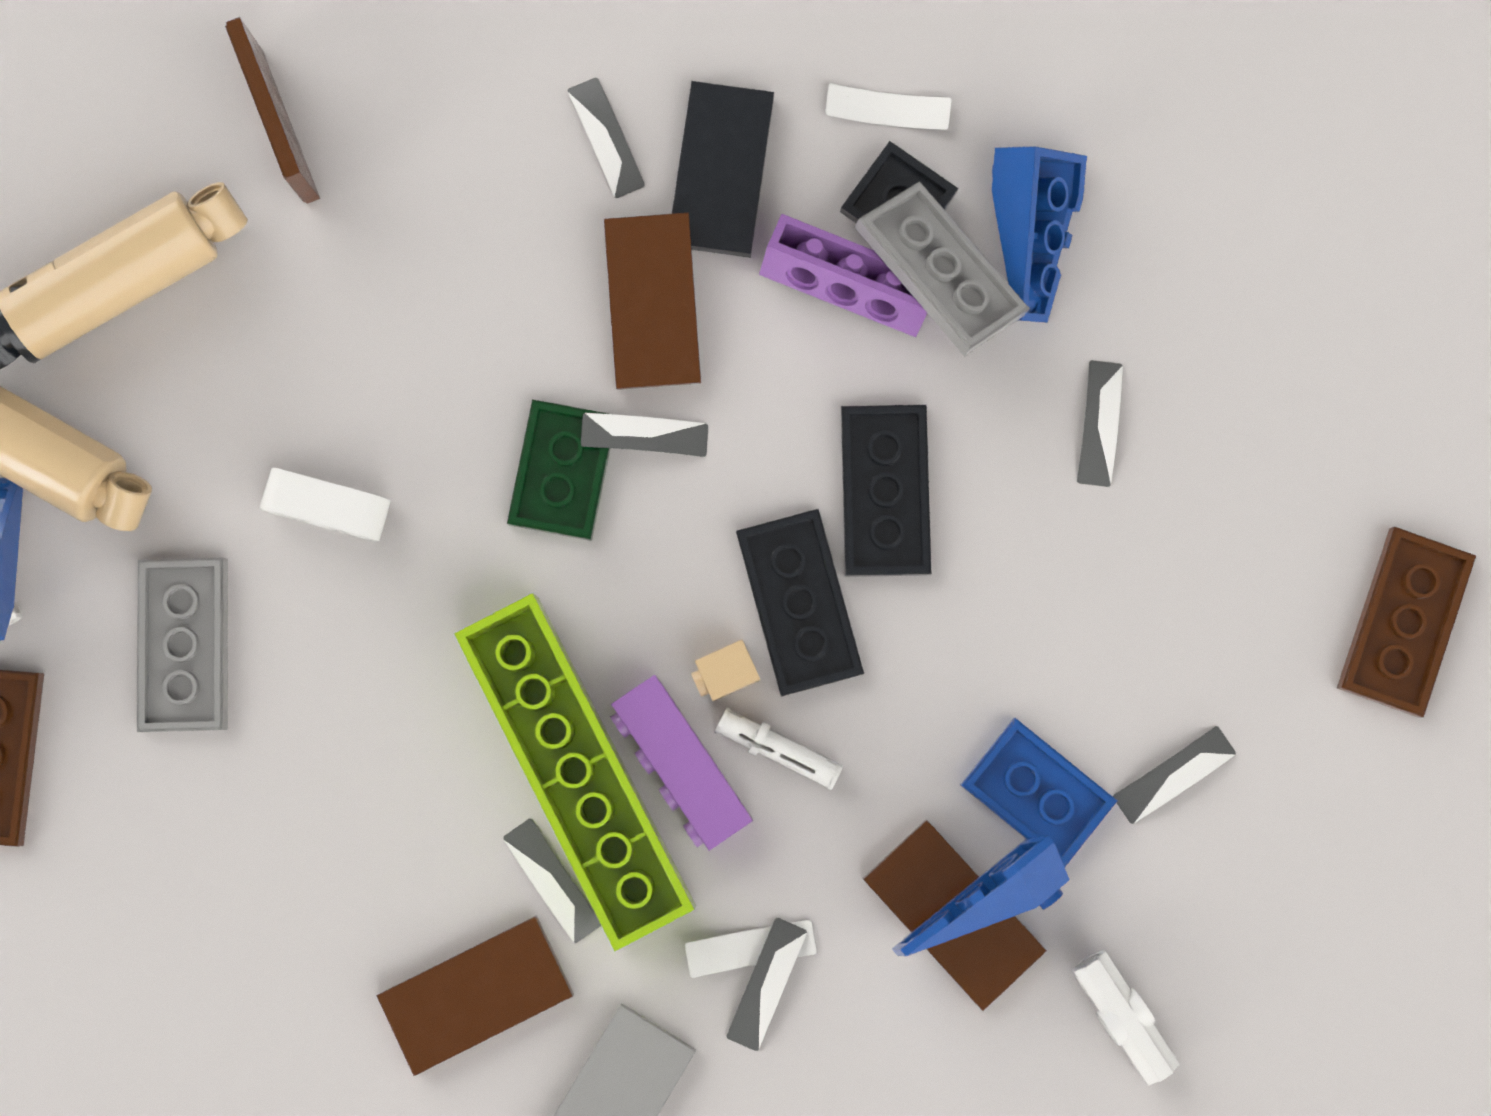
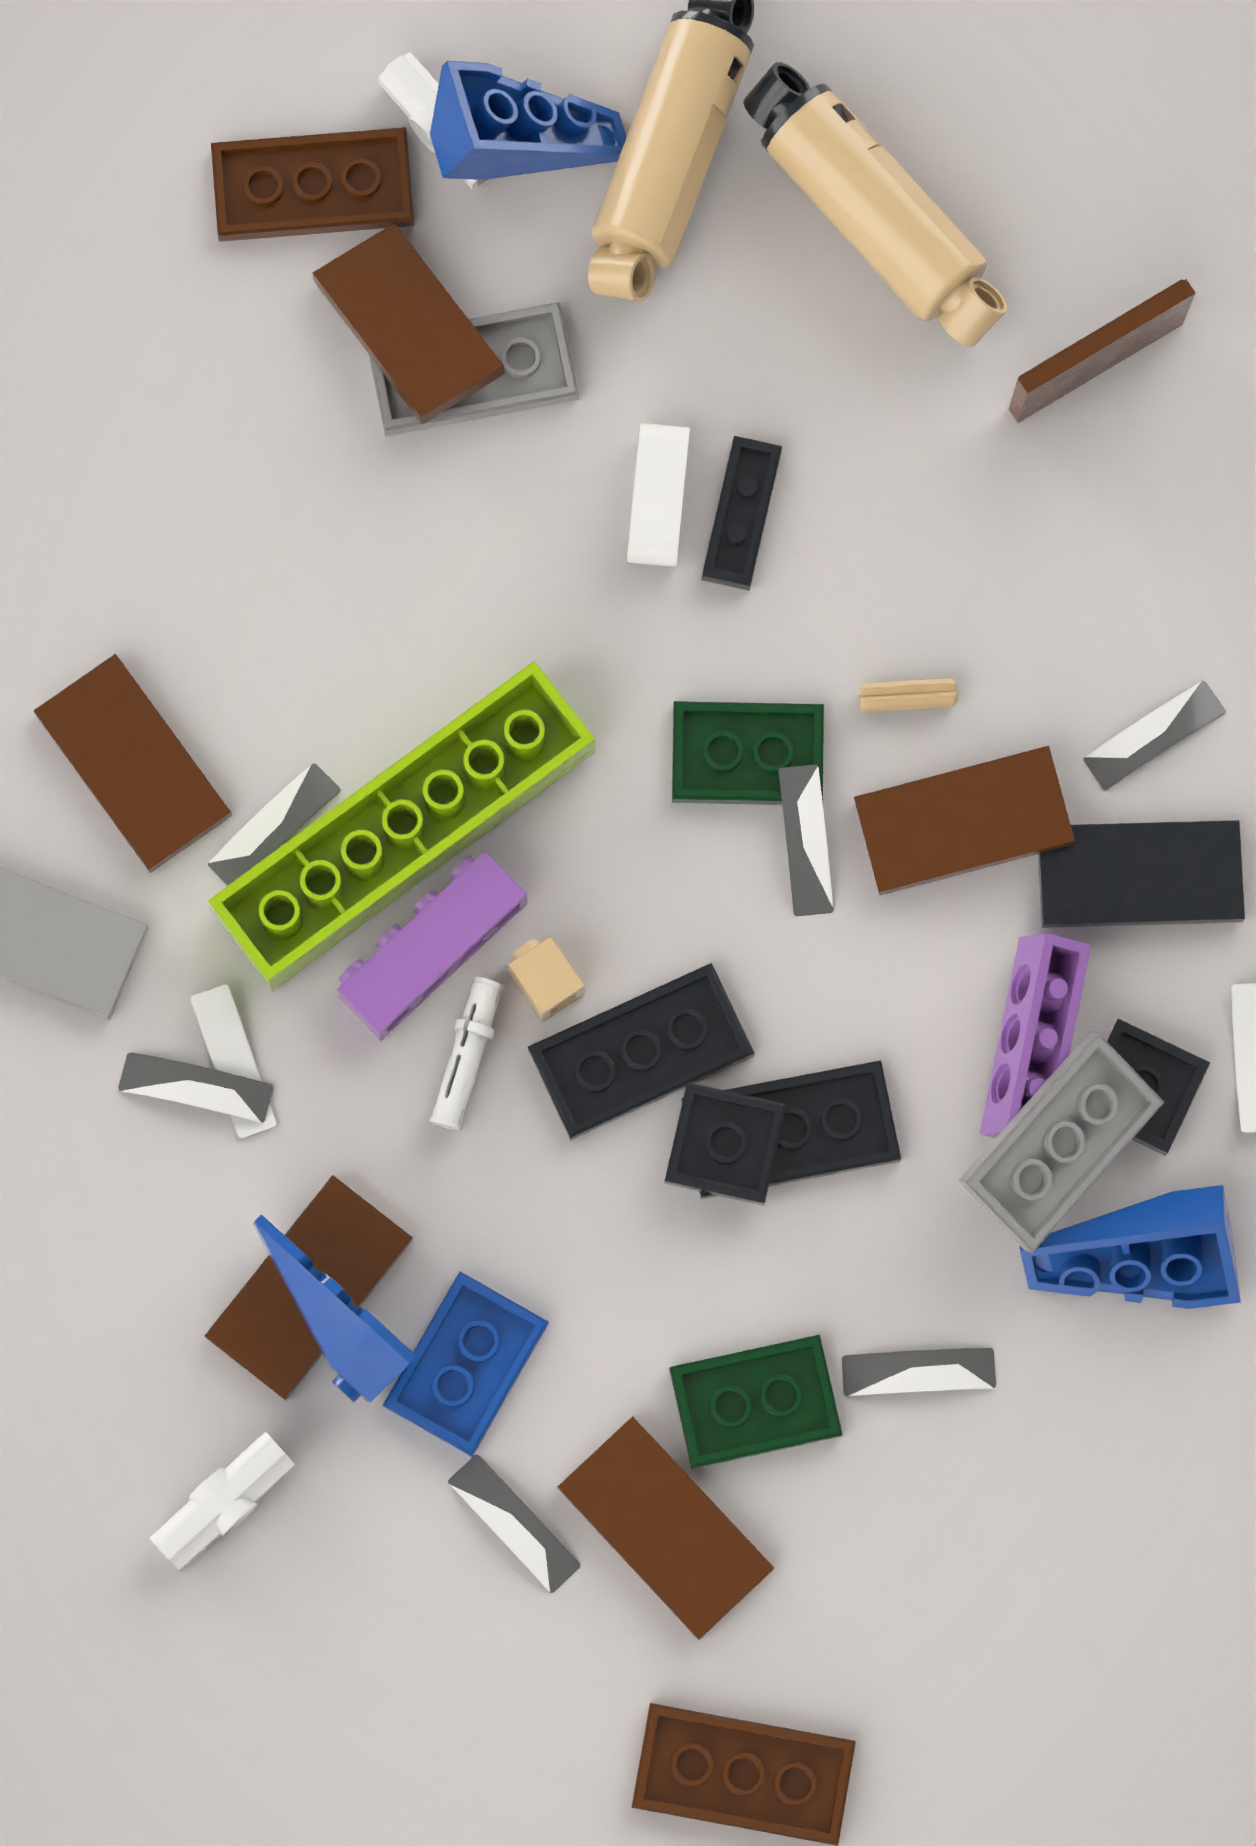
camera: 75 degrees right, 5 degrees down
(130, 692) = (408, 323): none -> reddish brown tile
(353, 438) = (741, 513): none -> black tile
(536, 329) = (907, 695): none -> tan axle
(892, 545) = (725, 1143): none -> black tile
(1106, 559) = (755, 1401): none -> dark green tile
(1199, 650) = (665, 1528): none -> reddish brown tile

